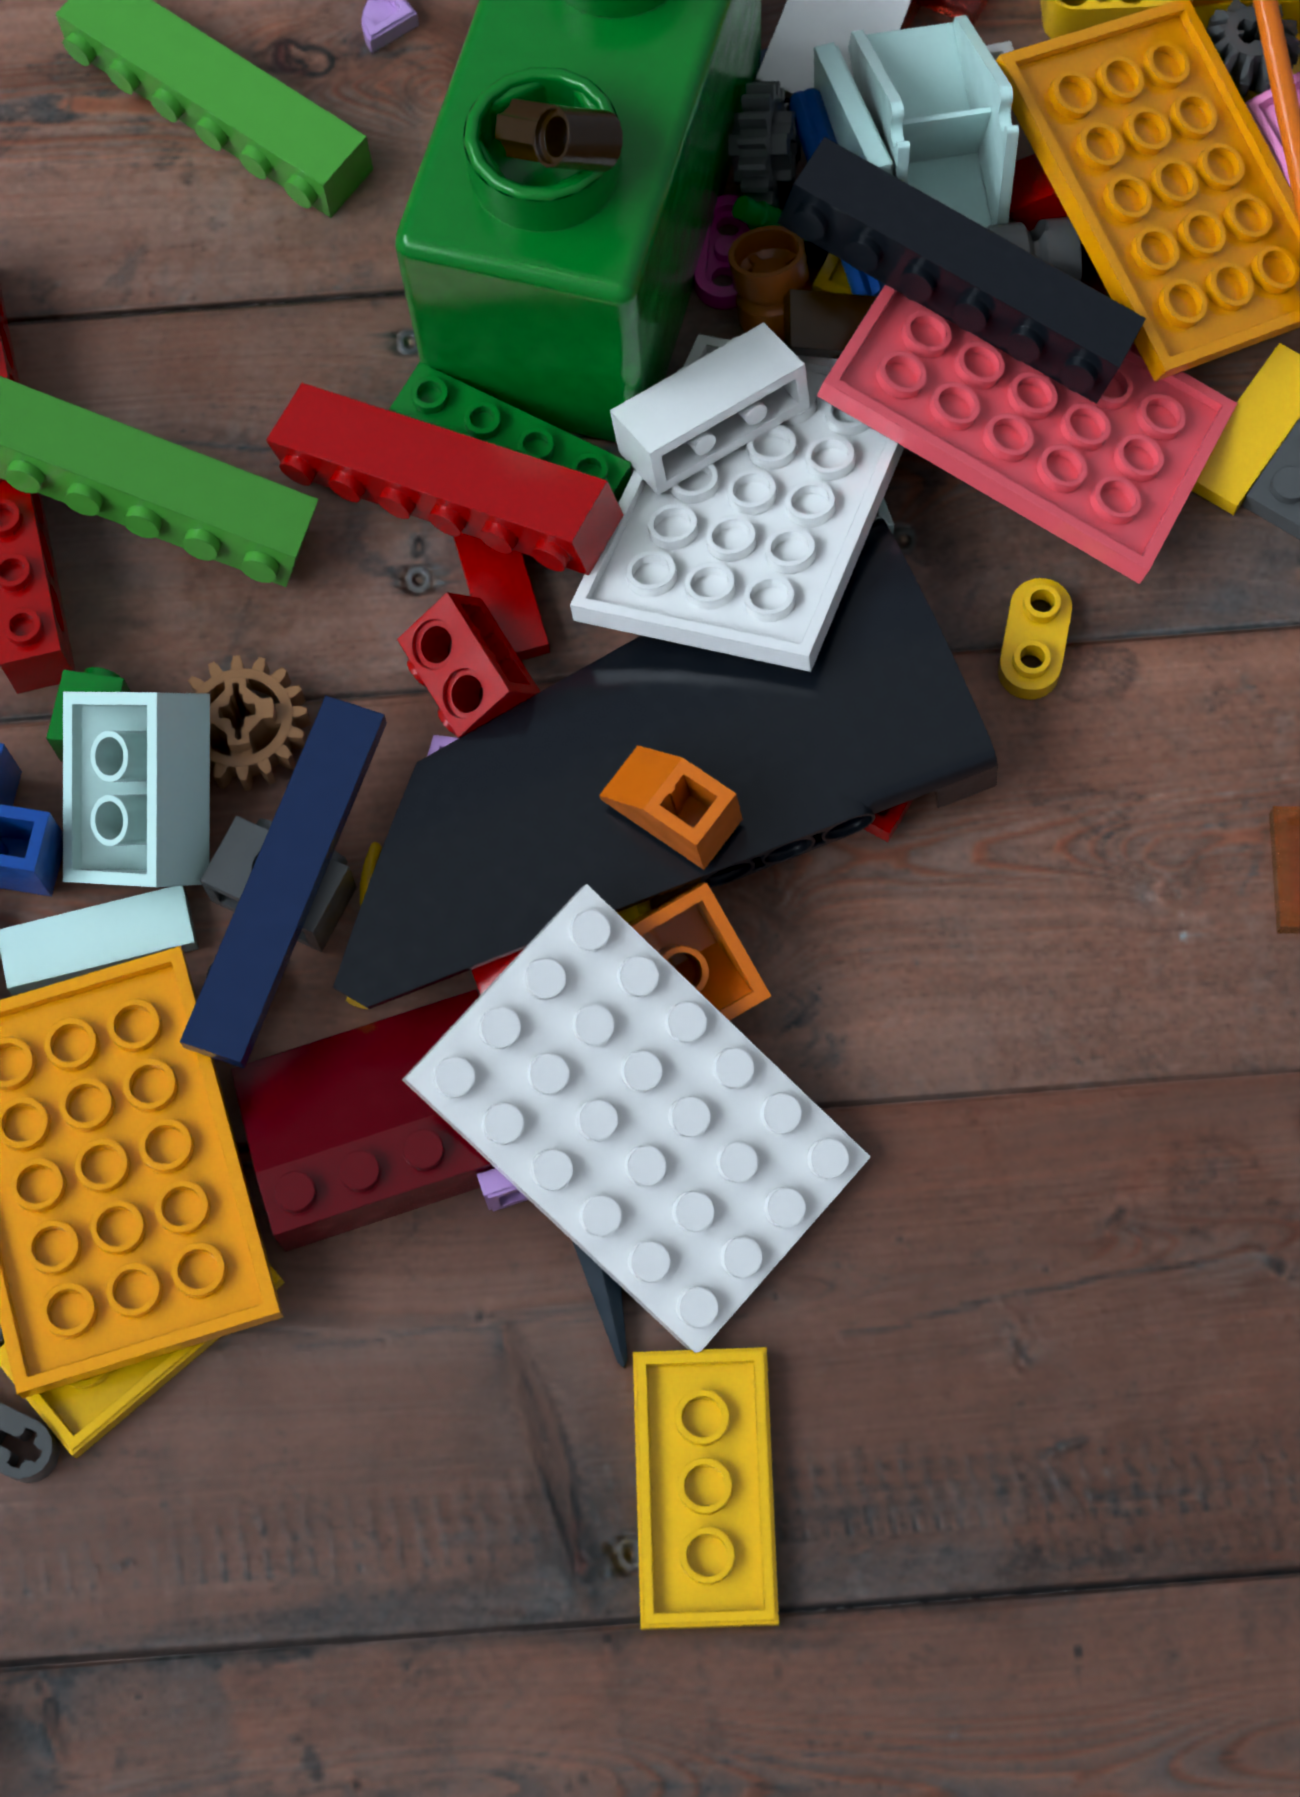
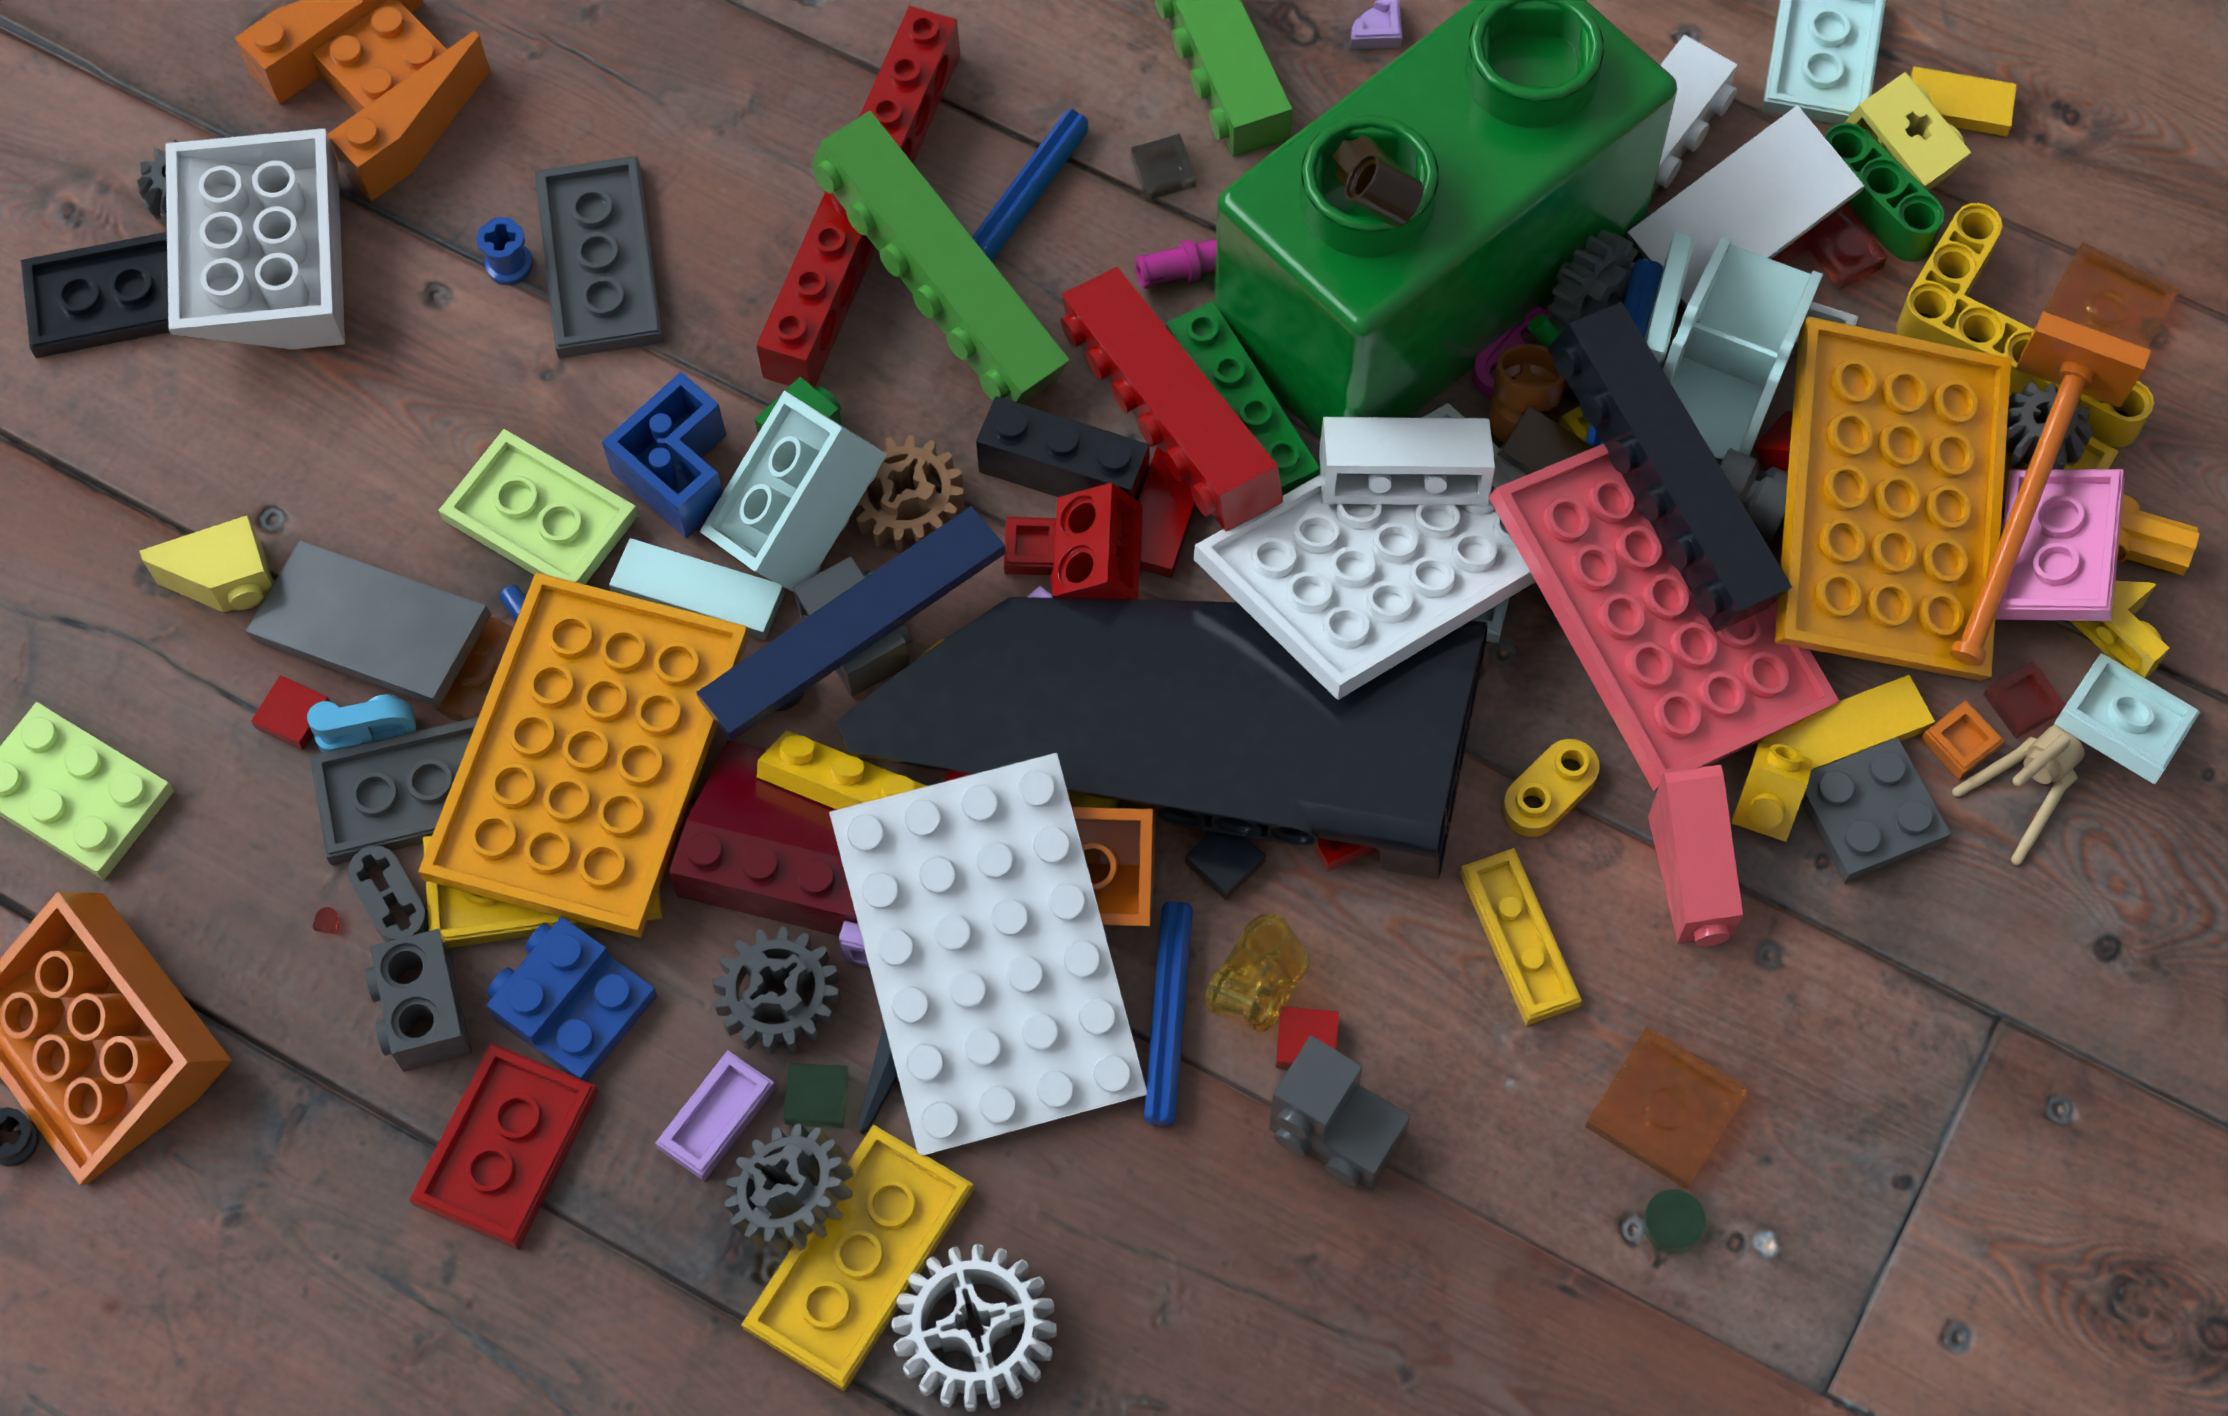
camera: 30 degrees right, 5 degrees down
(111, 1508) = (430, 997): none -> dark grey brick
(155, 346) = (1031, 182): none -> blue axle
(250, 1421) = (569, 998): none -> blue plate
(272, 264) = (1163, 167): none -> clear smoke tile
(284, 1607) = (504, 1146): none -> red tile
(360, 339) = (1185, 261): none -> dark pink pin
(365, 596) = (1057, 452): none -> black brick
(367, 1039) = (827, 773): none -> yellow plate
(400, 698) = (1029, 546): none -> red tile
(425, 1272) = (790, 974): none -> dark grey gear
(472, 1441) = (715, 1115): none -> lavender tile
(557, 1359) = (816, 1095): none -> clear green tile
(611, 1494) = (789, 1188): none -> dark grey gear
(674, 803) = (1165, 737): orange slope -> none
(787, 891) = (1225, 861): none -> black tile
(835, 1068) = (1168, 1014): none -> blue axle
(889, 1506) = (961, 1277): none -> white gear
(900, 989) = (1261, 972): none -> clear yellow piece
(978, 1011) = (1297, 1026): none -> red tile
(1063, 1067) = (1334, 1117): none -> dark grey brick
(1102, 793) = (1520, 937): none -> yellow tile
(1216, 620) = (1697, 855): none -> coral slope
(1238, 520) = (1773, 790): none -> yellow bracket

